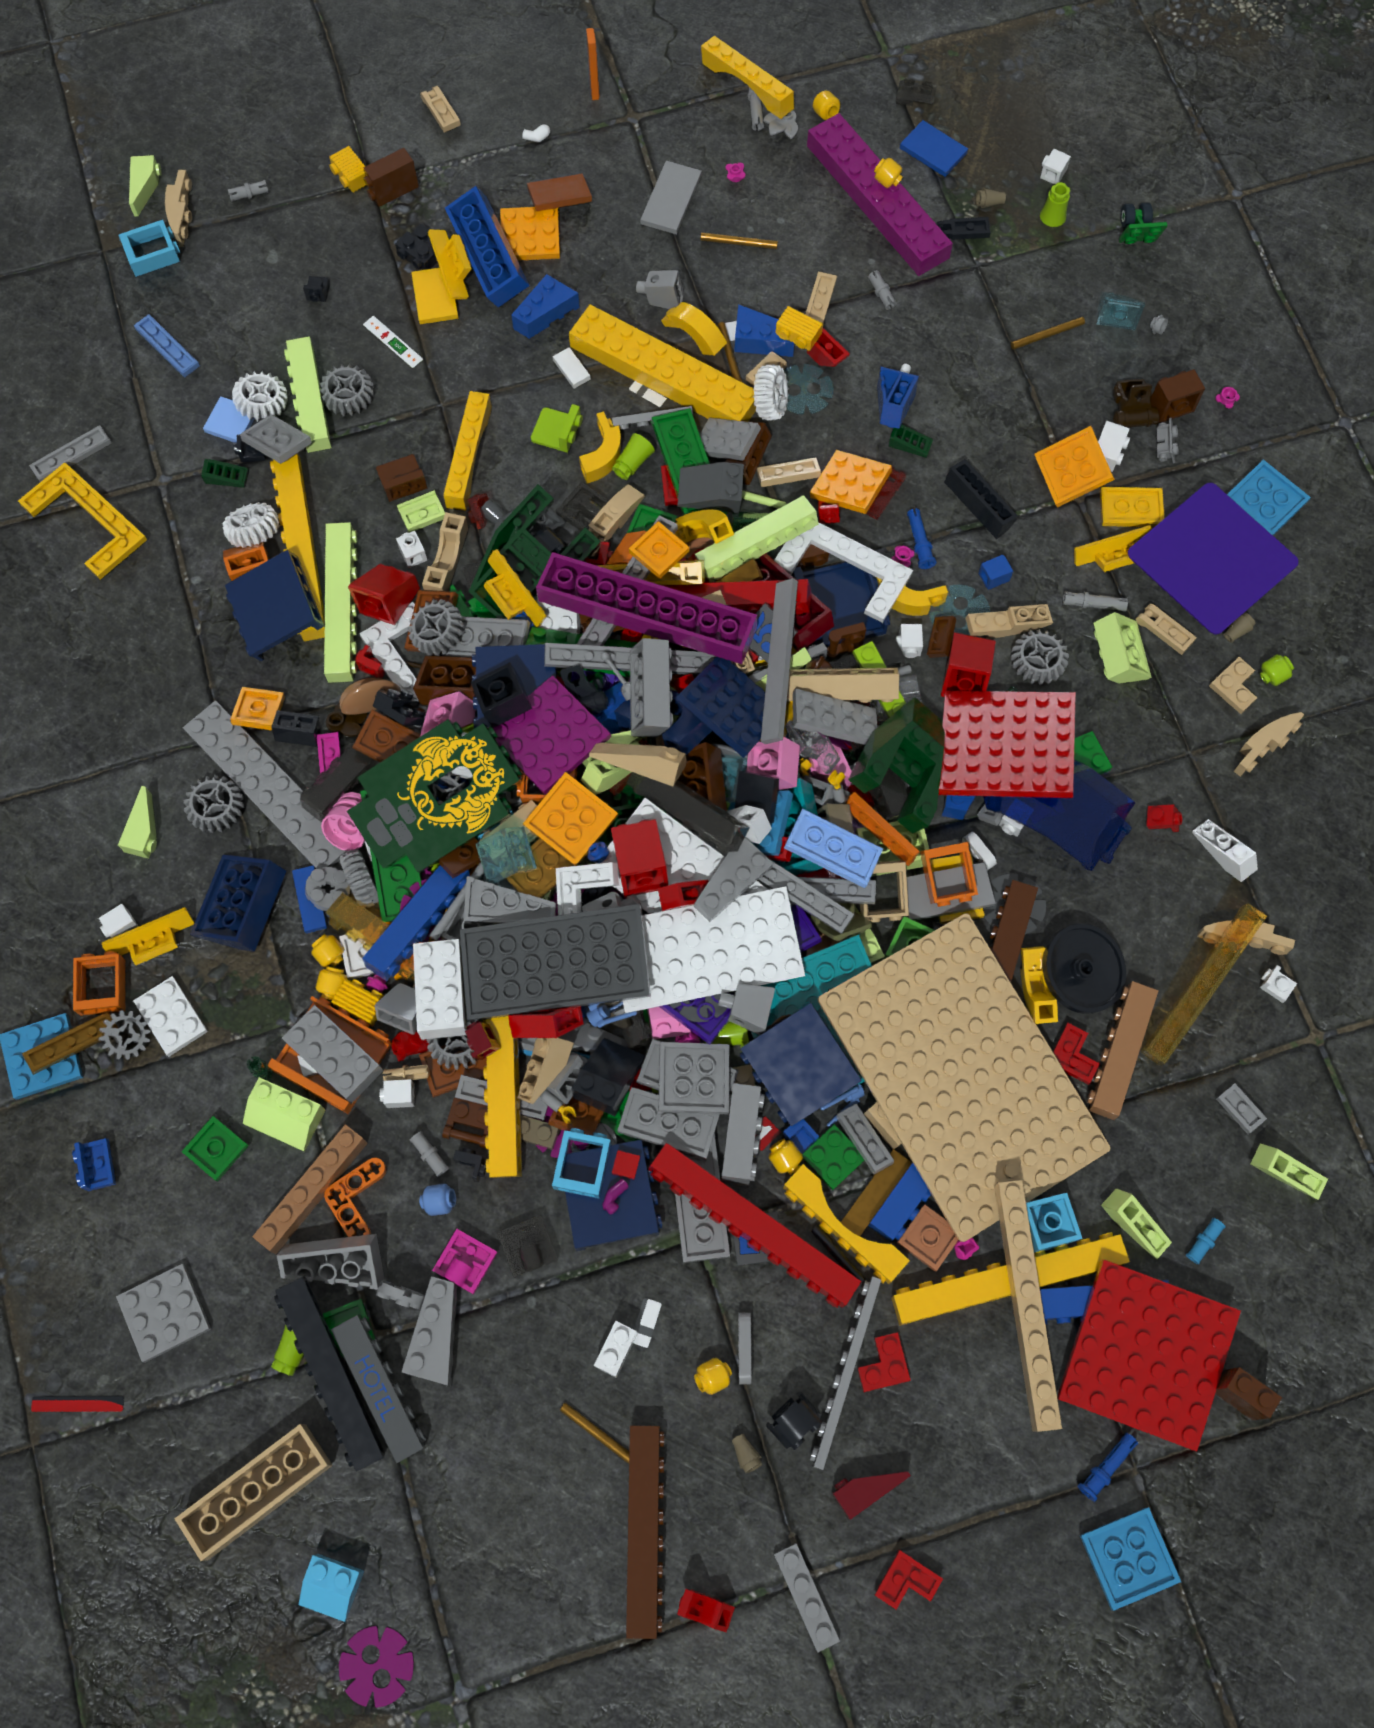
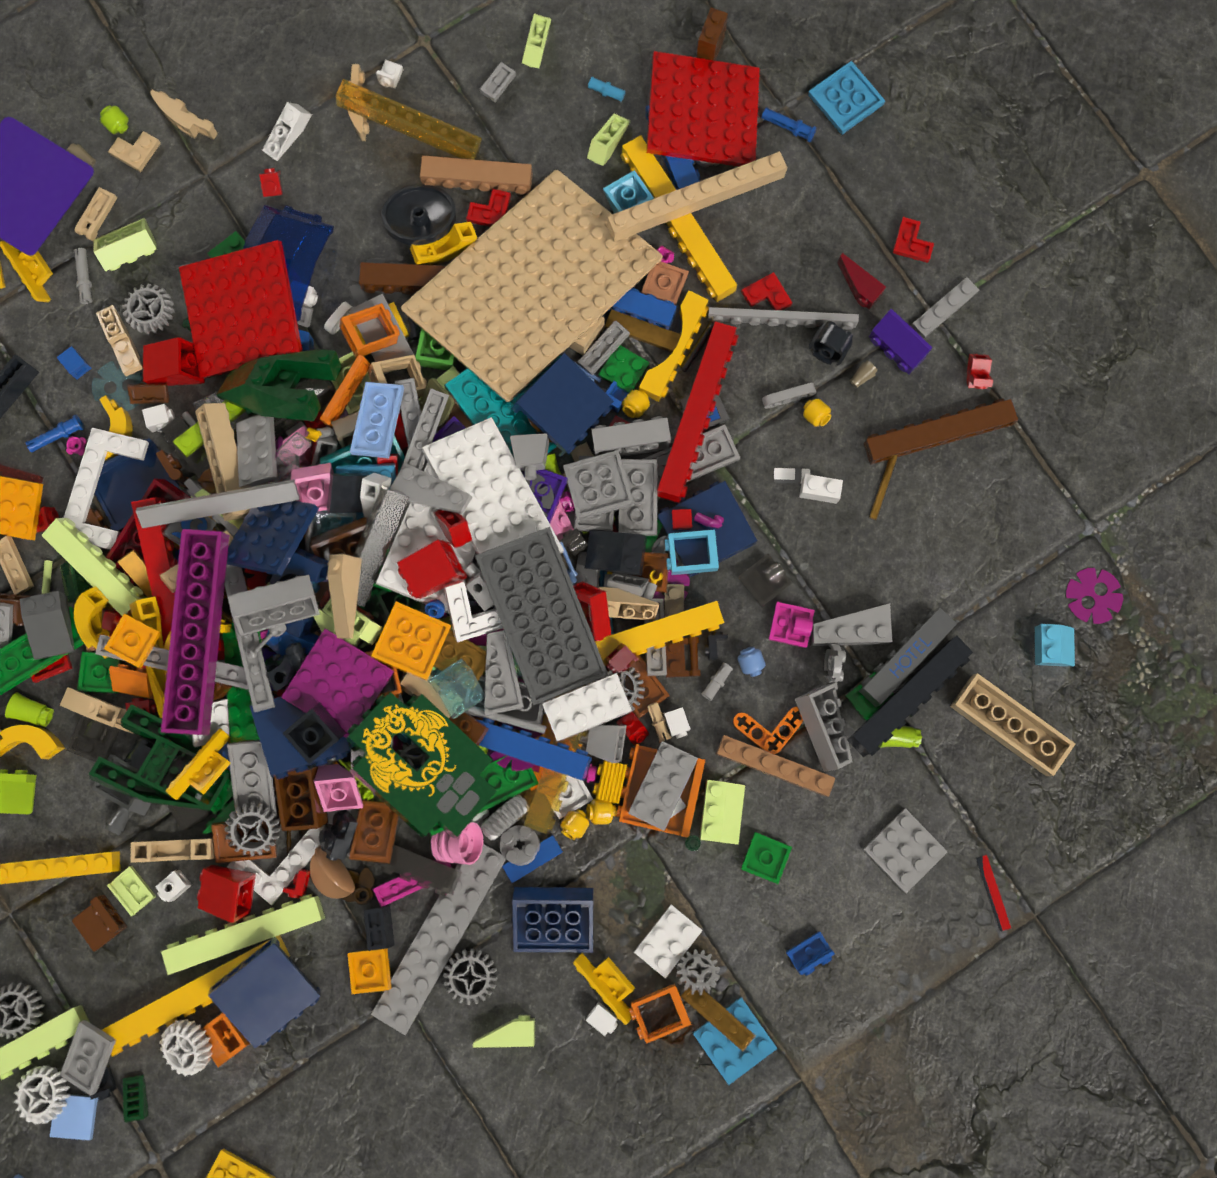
camera: 105 degrees left, 10 degrees up
(475, 504) = (121, 839): clear red bracket -> none
(695, 544) = (110, 621): none -> red bracket
(771, 1512) = (900, 342): none -> dark purple slope

